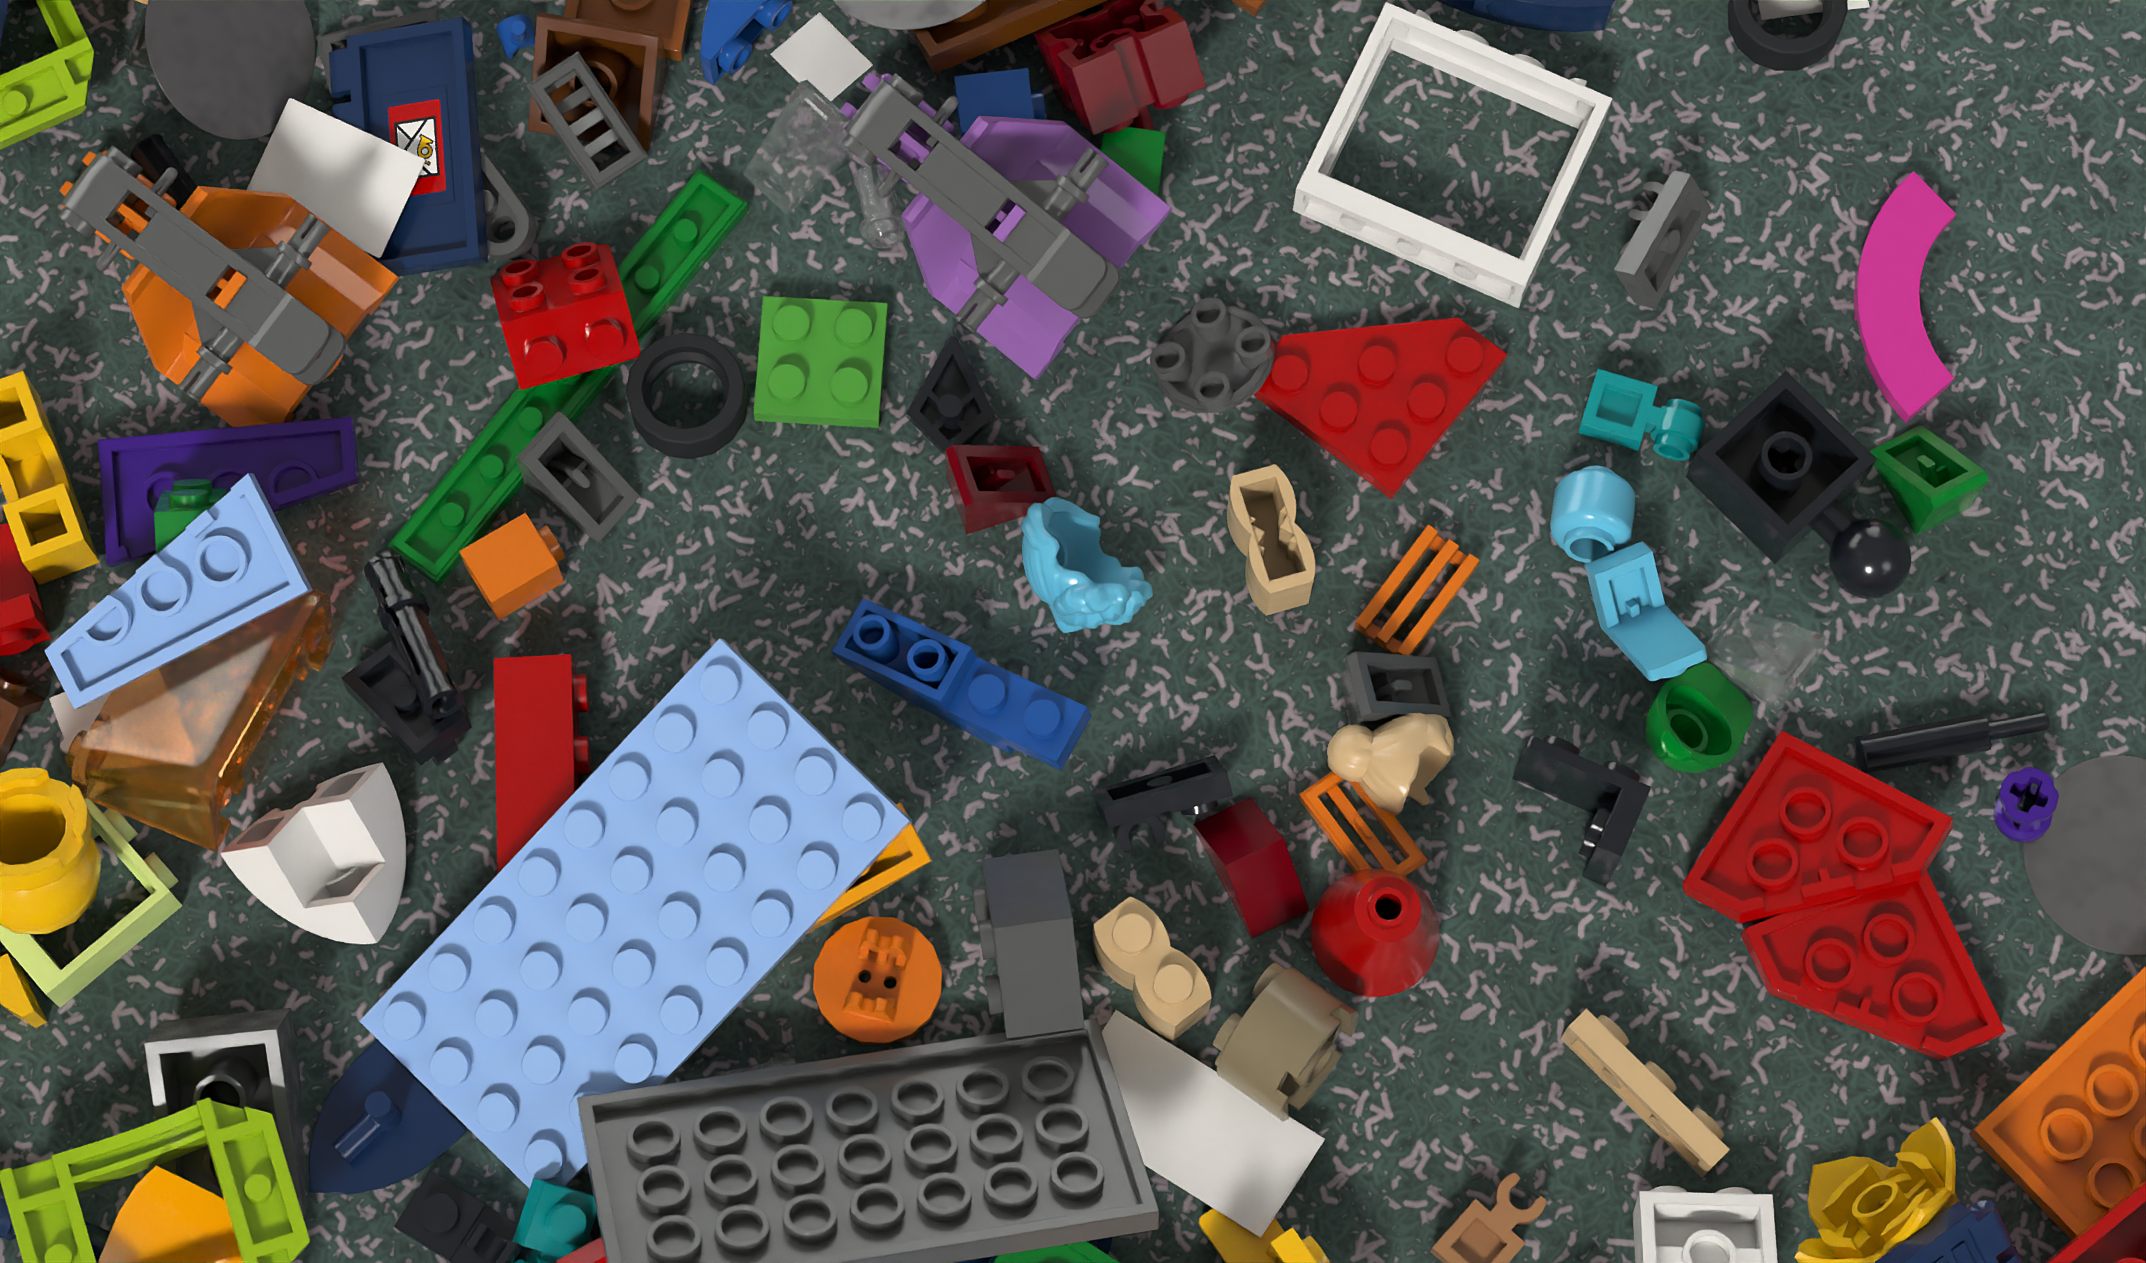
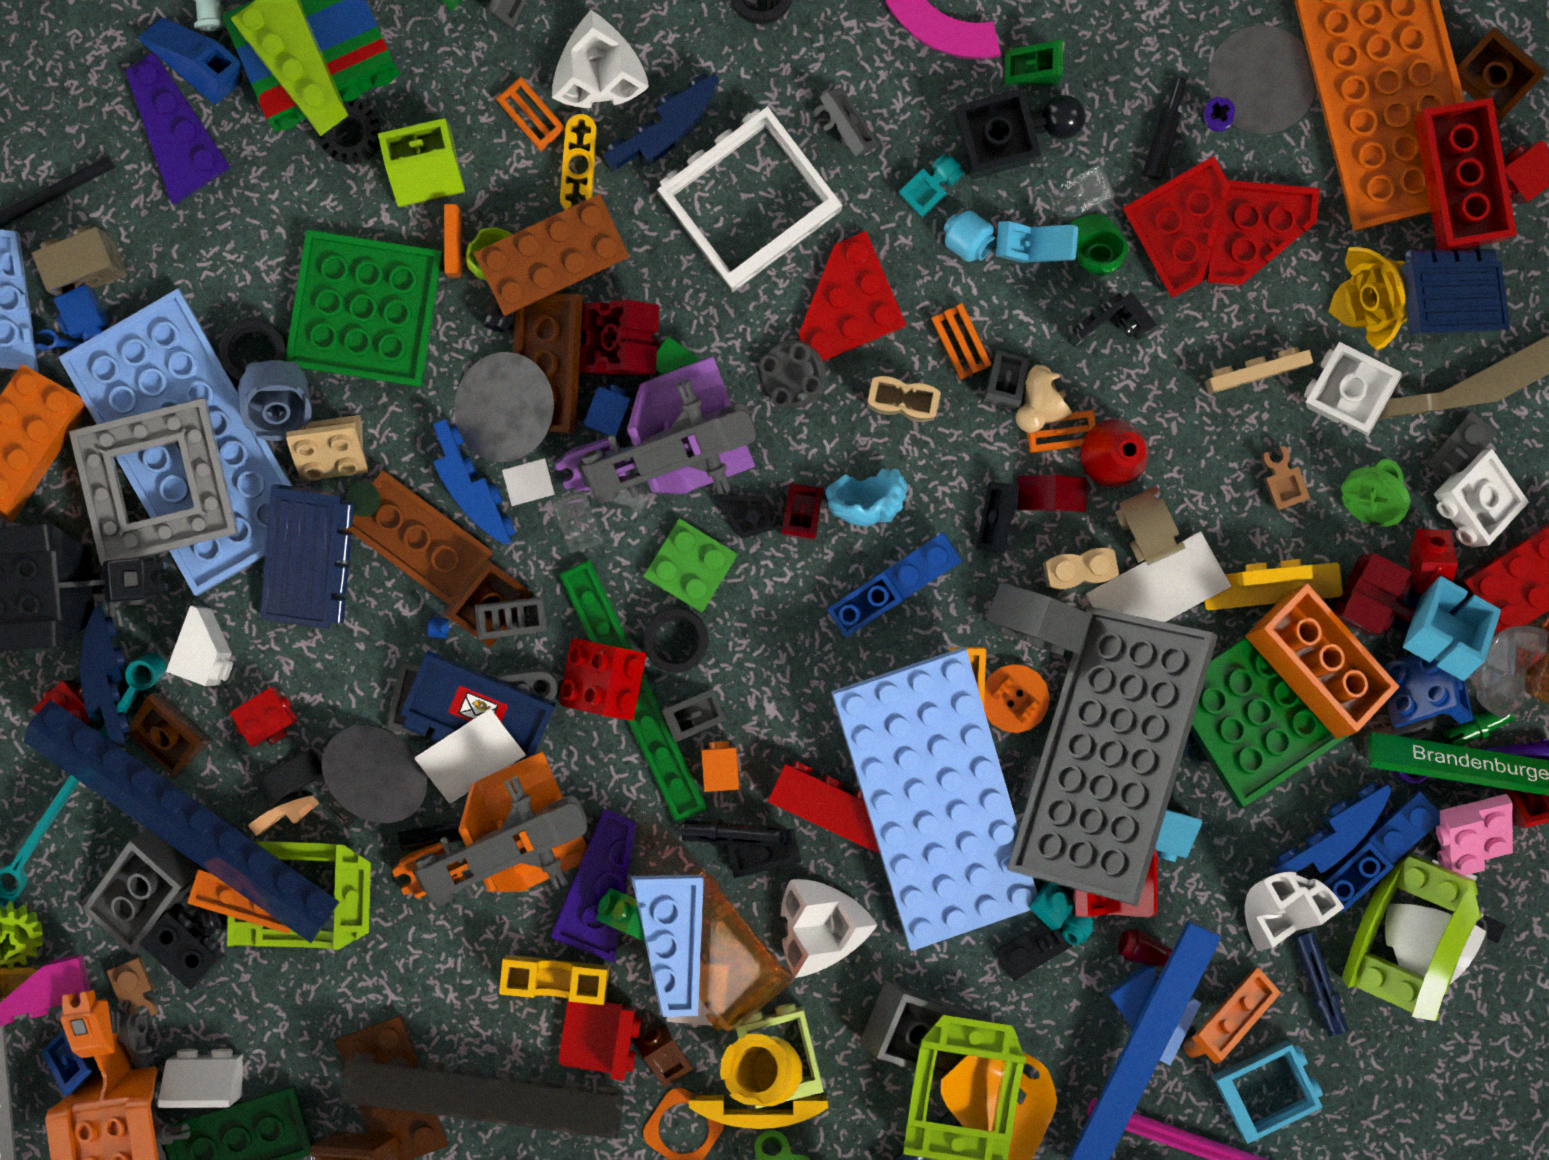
camera: 55 degrees left, 15 degrees up
(377, 1128) = (960, 967): dark blue shield -> none

